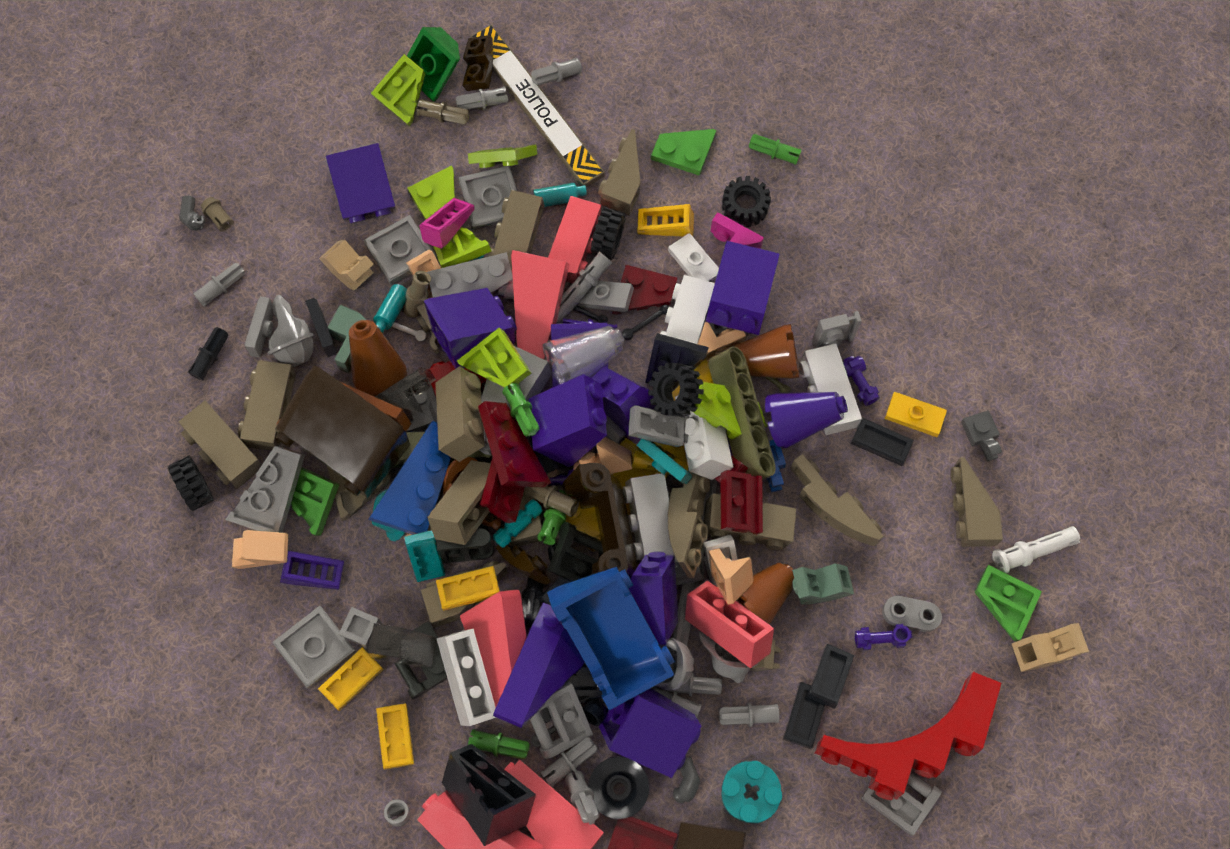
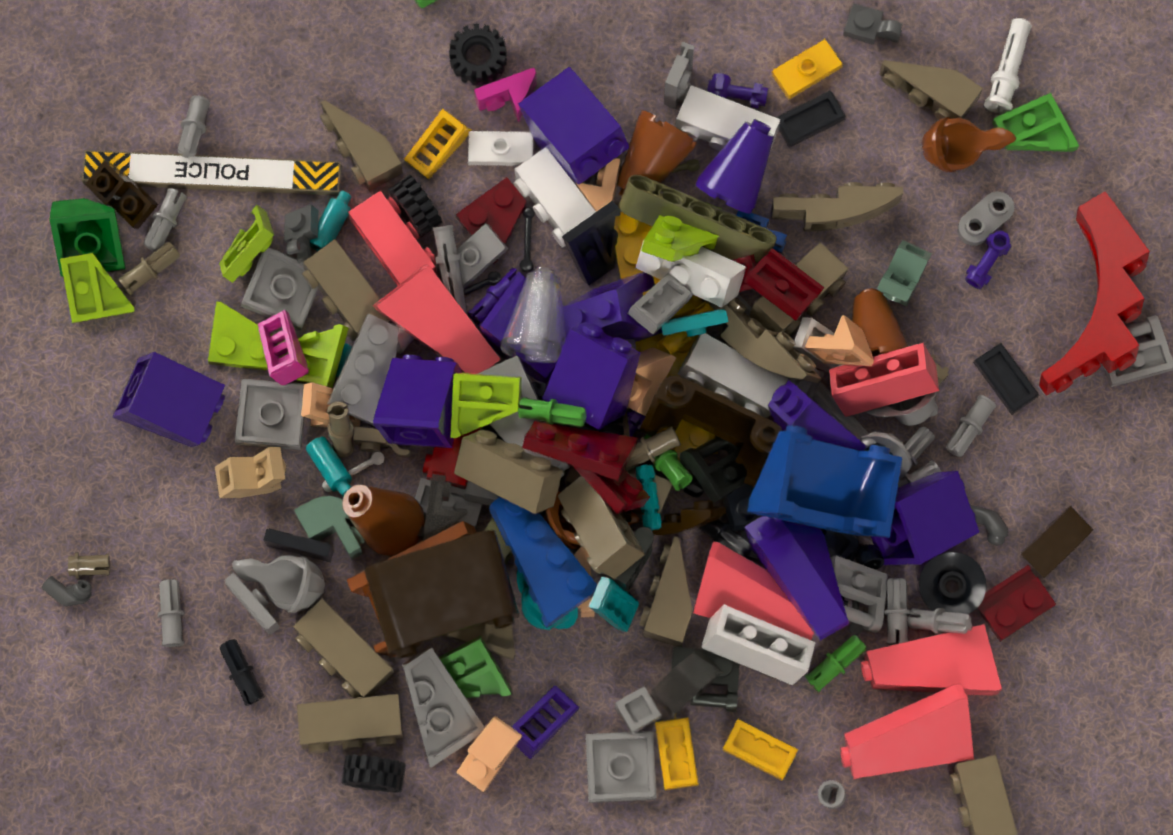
camera: 50 degrees left, 5 degrees up
(467, 588) = (678, 584): yellow plate -> none
(487, 794) = (879, 698): black wedge -> none
(538, 178) = (298, 231): none -> dark grey plate
(684, 149) = (374, 69): bright green wing -> none
(688, 389) = (634, 274): black tyre -> none
(768, 795) = (1051, 488): teal plate -> none
(830, 676) = (989, 330): black tile -> none
(949, 554) = (959, 143): none -> dark orange piece
(1050, 647) = (1105, 126): tan brick -> none

